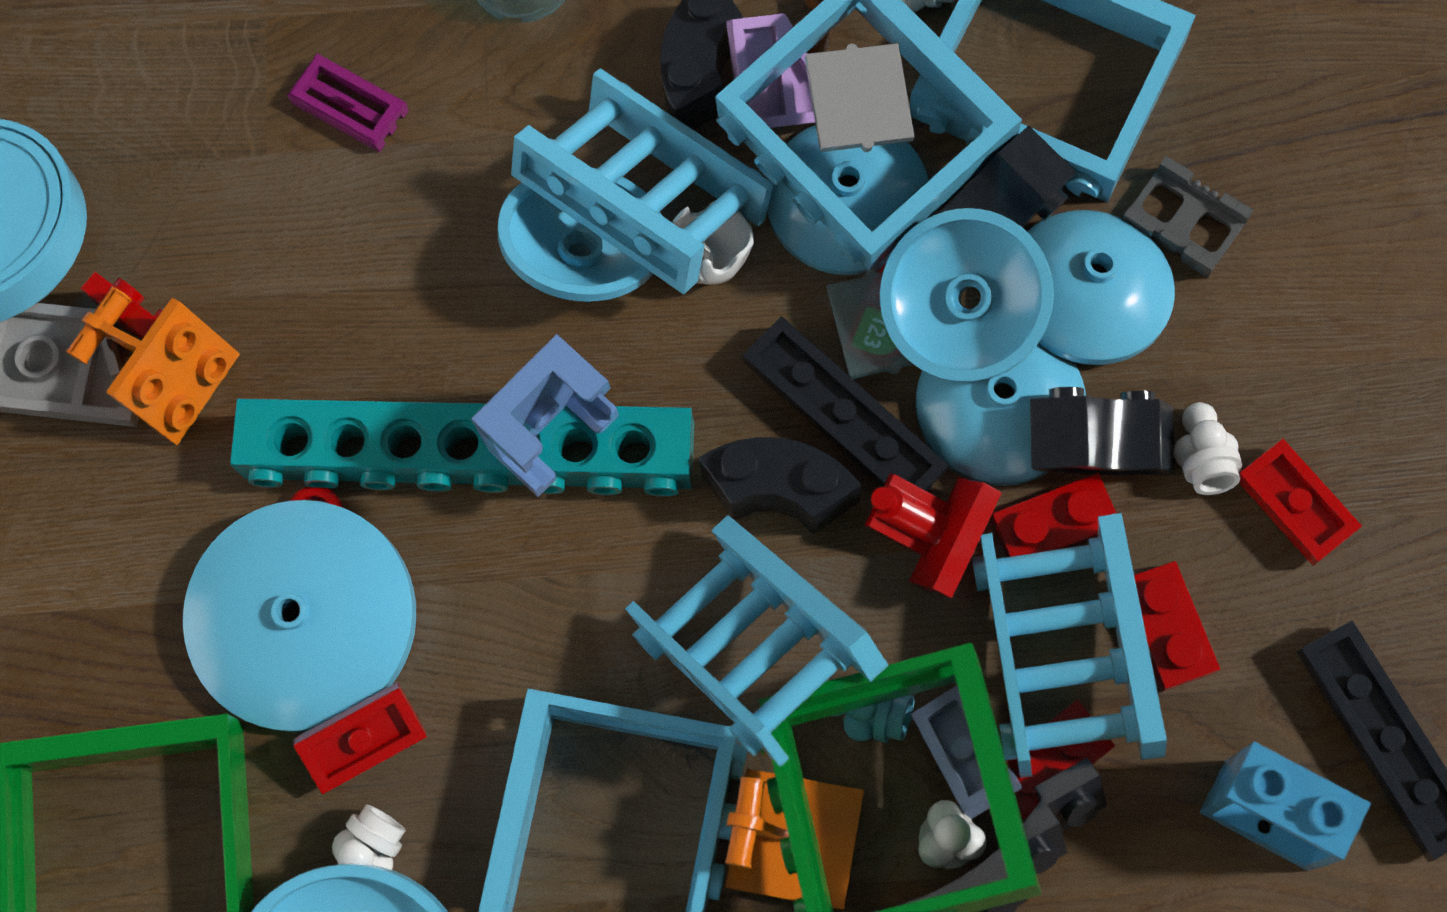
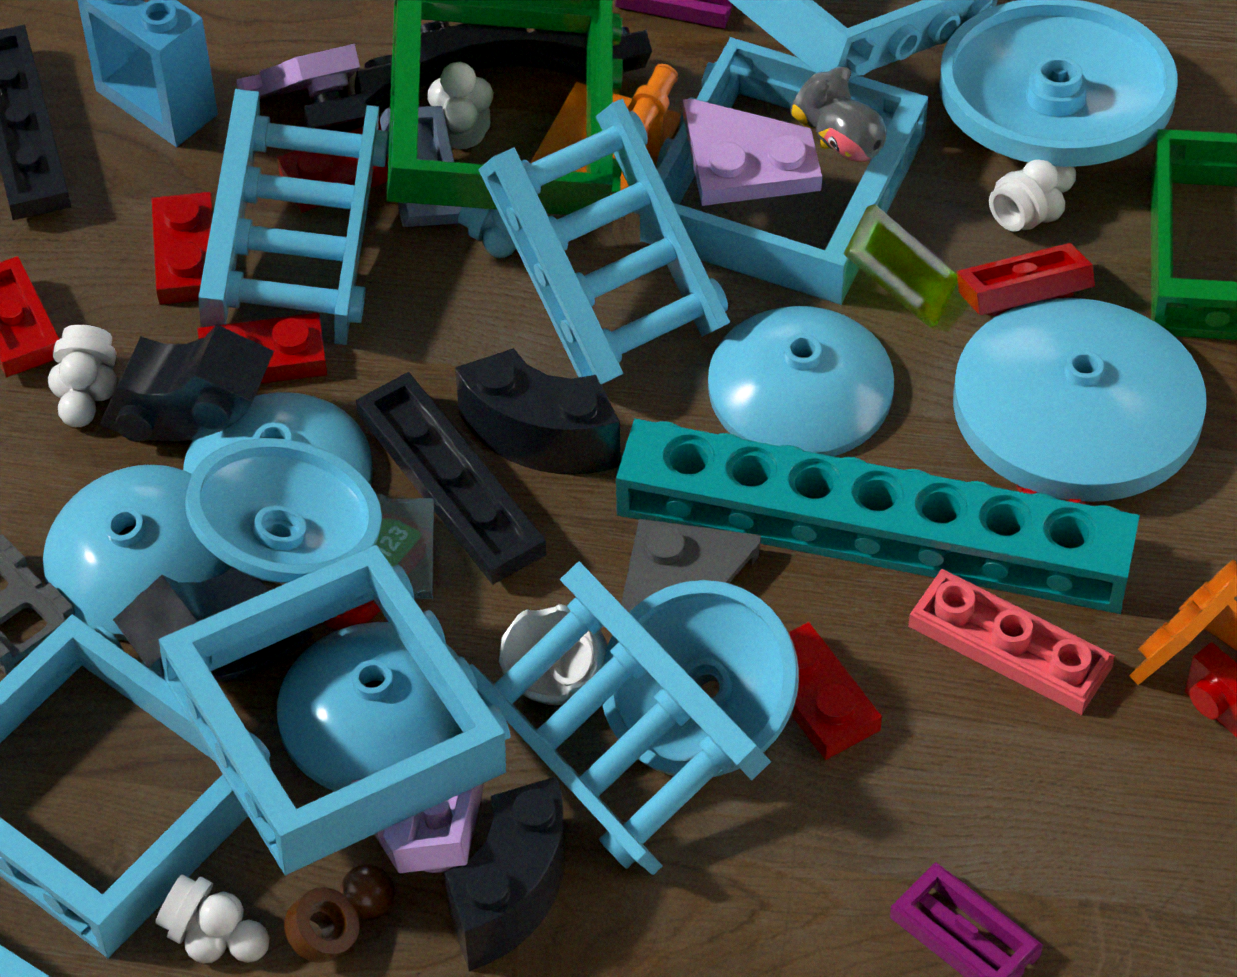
camera: 175 degrees left, 20 degrees down
(366, 371) = (1034, 656): none -> coral tile
(478, 718) = (901, 265): none -> clear neon green slope
(488, 281) = (828, 699): none -> red plate
(532, 400) = (783, 457): medium blue panel -> none
(550, 848) = (839, 121): none -> dark grey animal
(565, 632) = (811, 402): none -> medium azure dish
(634, 352) = (683, 553): none -> dark grey wing
(641, 801) = (748, 154): none -> lavender wing
(859, 97) = (336, 691): light grey piece -> none
(933, 528) = (383, 340): red piece -> none
(1116, 841) = (316, 71): none -> lavender wing

